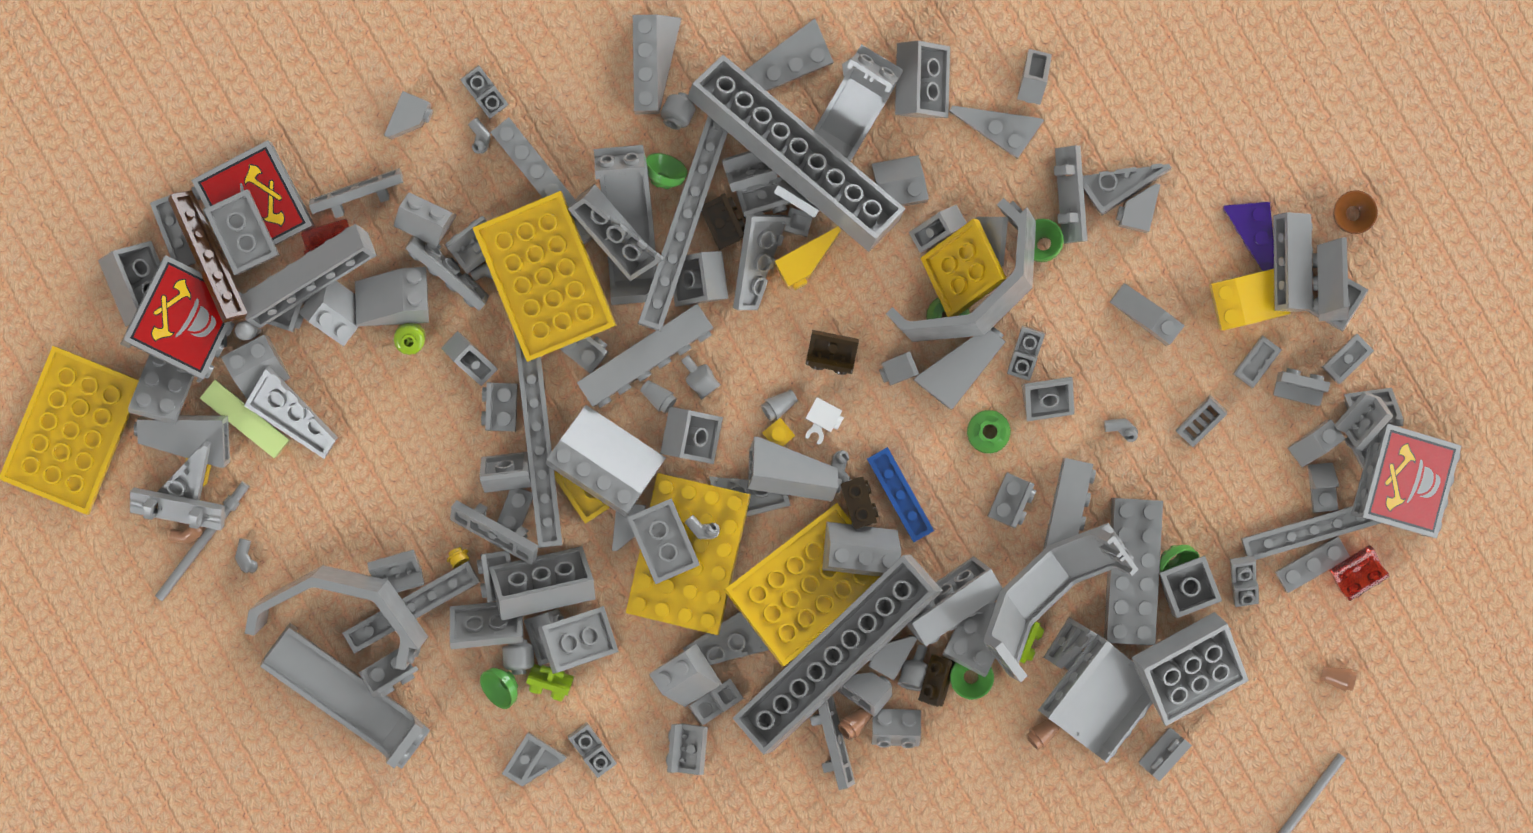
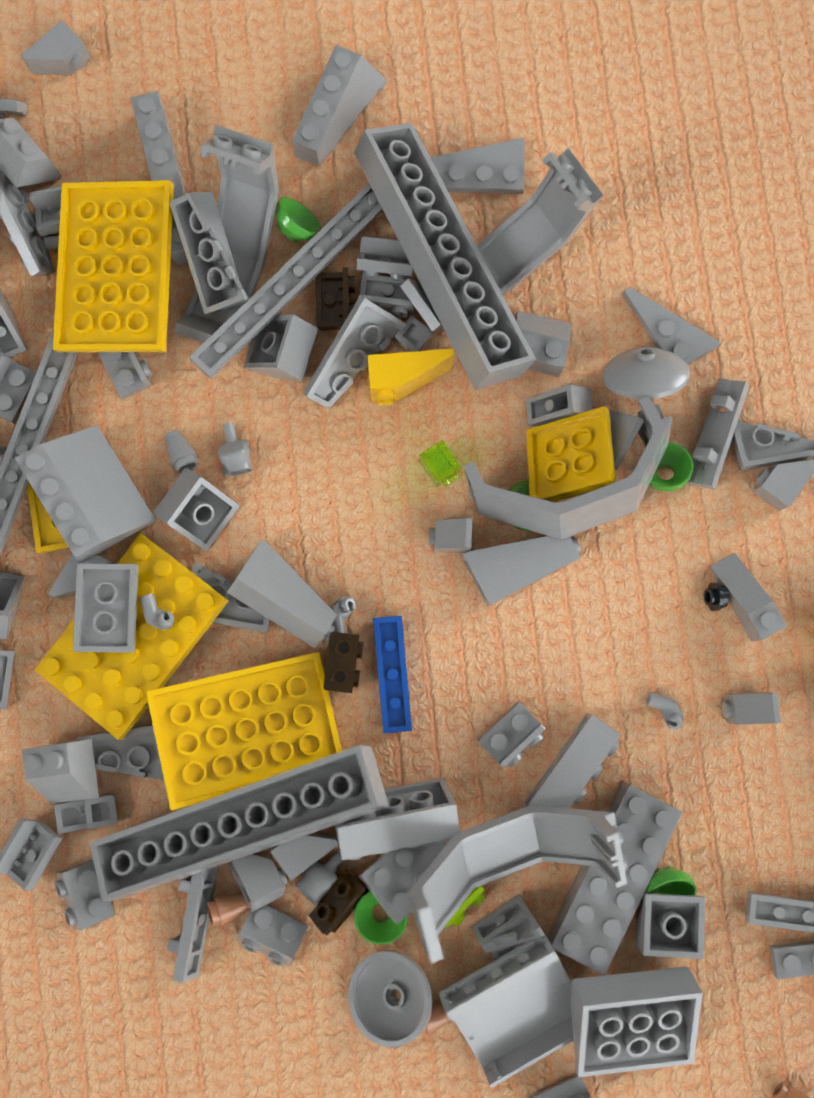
camera: 20 degrees right, 5 degrees down
(482, 137) = (122, 113): light grey arm -> none
(484, 91) = (149, 64): light grey slope -> none
(646, 355) = (185, 403): light grey brick -> none
(677, 111) = (338, 167): light grey head -> none
(742, 761) = (82, 896): none -> light grey bracket
(778, 405) = (305, 518): light grey cone -> none
(778, 433) = (291, 549): yellow plate -> none
(823, 416) = (346, 551): white brick -> none
(832, 352) = (387, 487): dark brown bracket -> none
(860, 550) = (320, 715): light grey slope -> none
(865, 316) = (440, 464): none -> clear neon green brick
(924, 81) = (610, 246): light grey slope -> none
(976, 436) = (504, 653): bright green piece -> none
(992, 738) = (374, 1003): none -> light grey dish
(994, 175) = (646, 373): none -> light grey dish
(1025, 353) = (596, 581): light grey slope -> none
(1034, 76) = (729, 295): light grey slope -> none
(1048, 399) = (601, 640): light grey slope -> none
(1123, 324) = (716, 596): none -> black plate
(1183, 400) = (751, 708): none -> light grey slope
(1196, 415) = (782, 742): light grey slope -> none
(1244, 581) = (733, 942): light grey slope -> none

